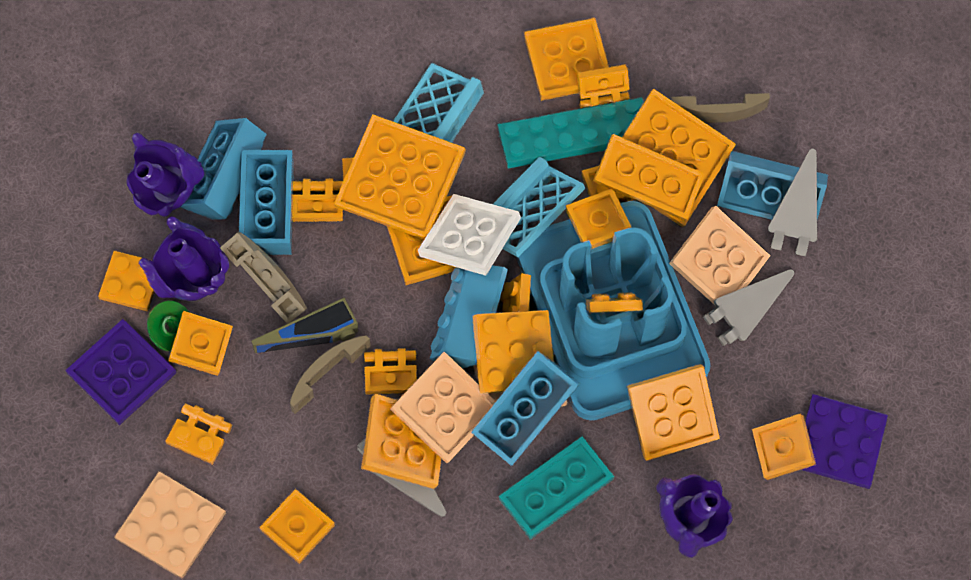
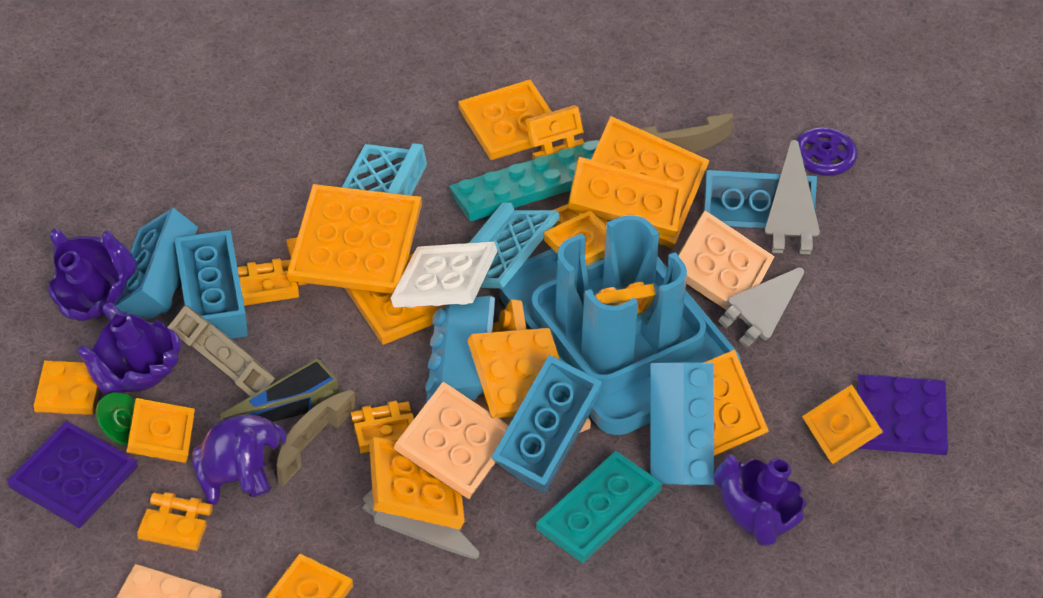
camera: 10 degrees left, 20 degrees down
(256, 386) = (235, 453): none -> dark purple piece
(641, 429) = (682, 423): none -> dark azure slope
(844, 162) = (827, 151): none -> dark purple plate

